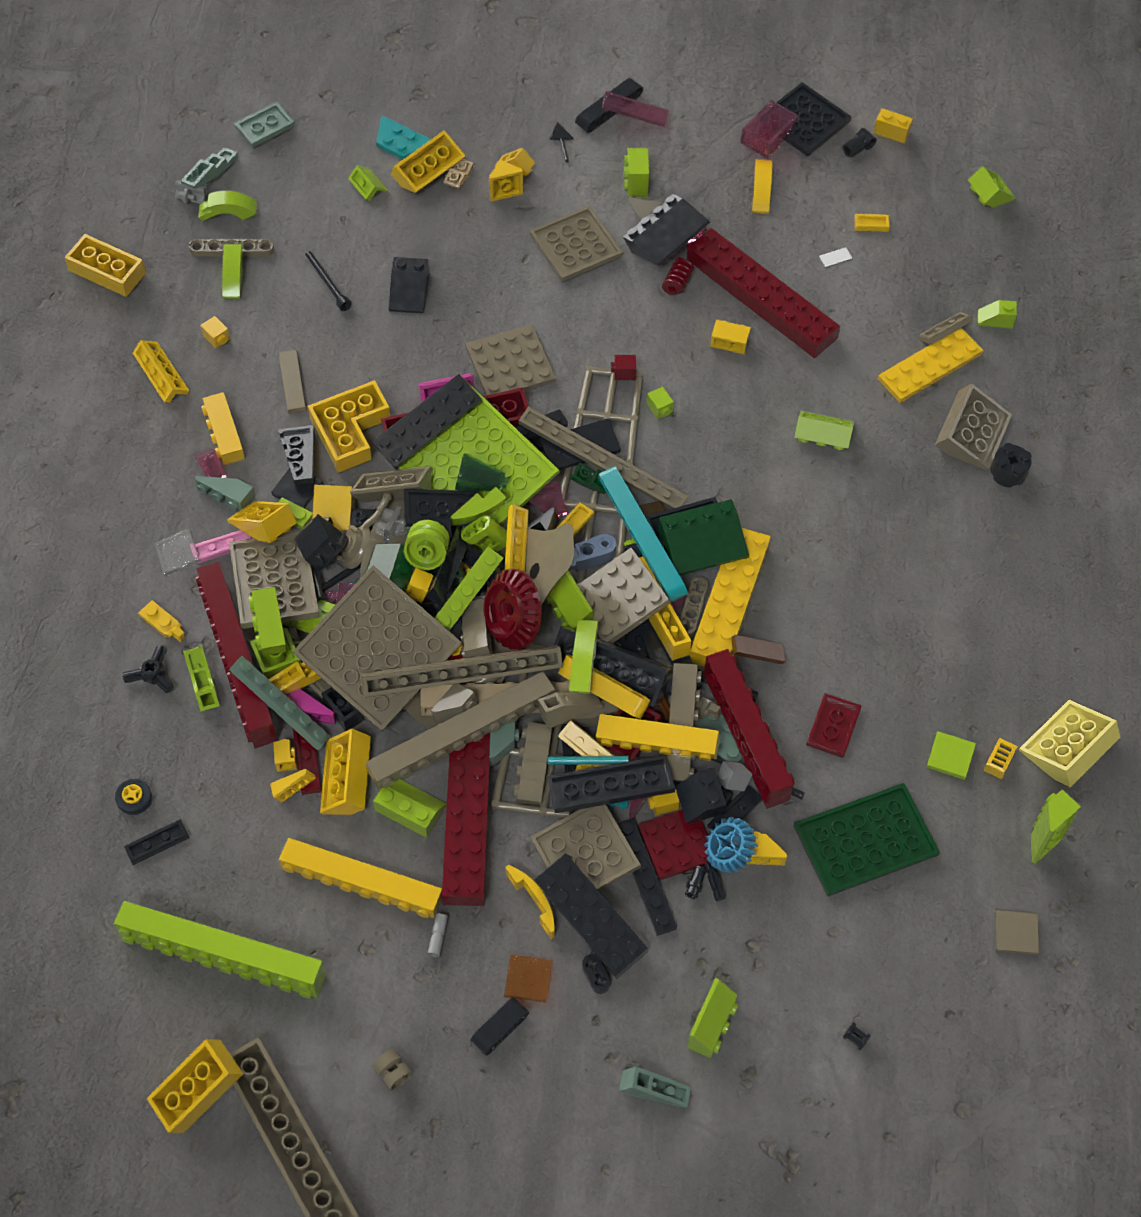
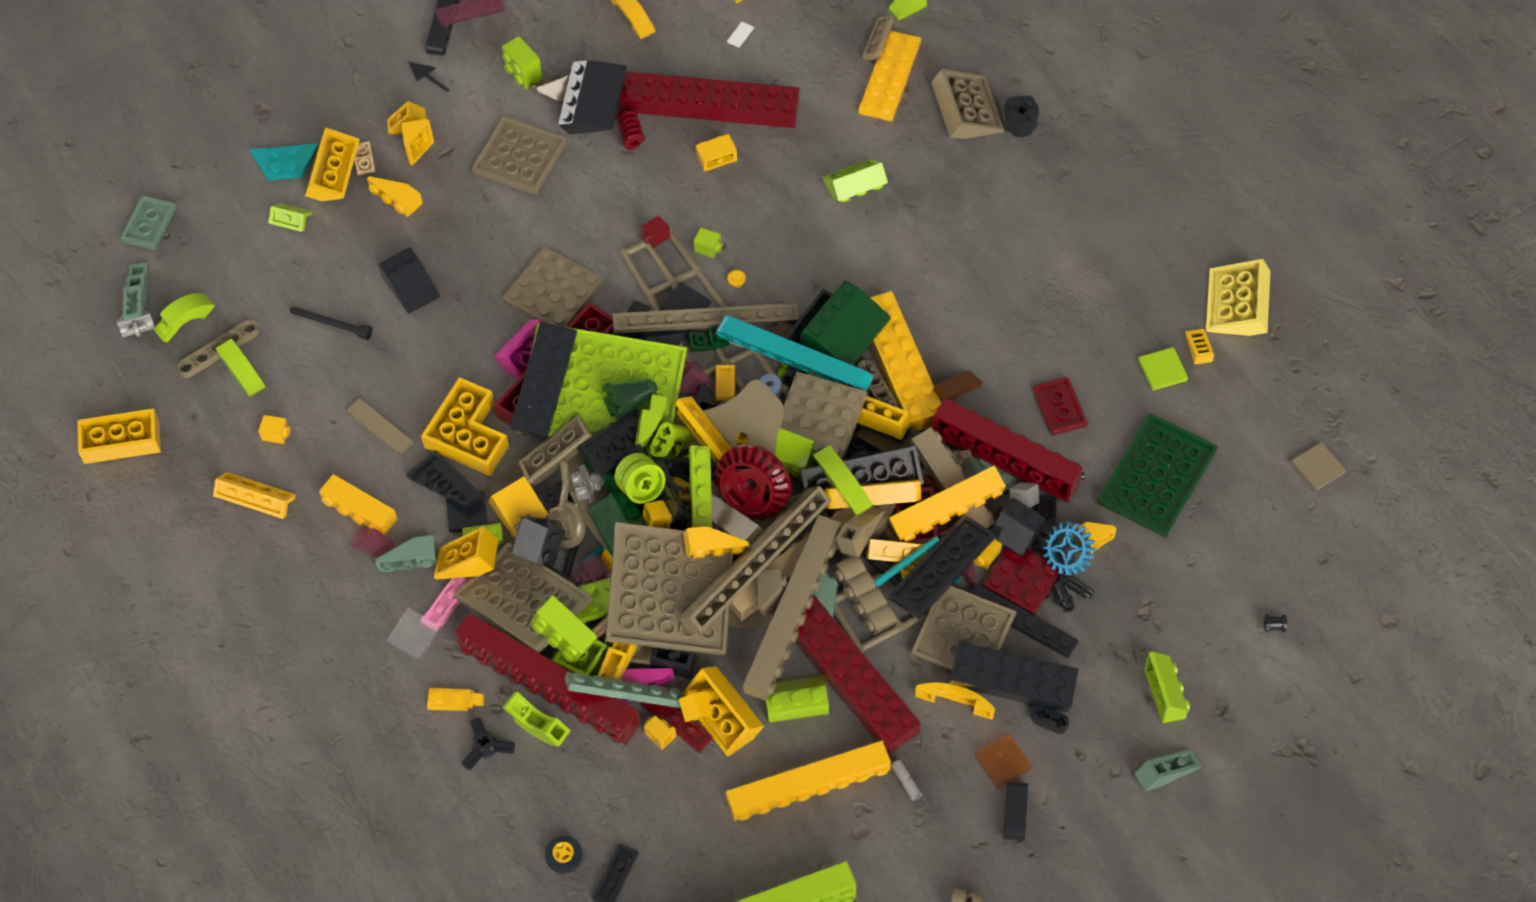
camera: 35 degrees left, 0 degrees up
(288, 786) = (686, 752): yellow slope -> none
(325, 754) = (695, 705): none -> yellow brick
(431, 627) = (705, 540): none -> yellow slope
(459, 216) = (399, 195): none -> yellow slope
(659, 446) = (736, 278): none -> yellow plate
(1052, 824) = (1284, 367): lime slope -> none

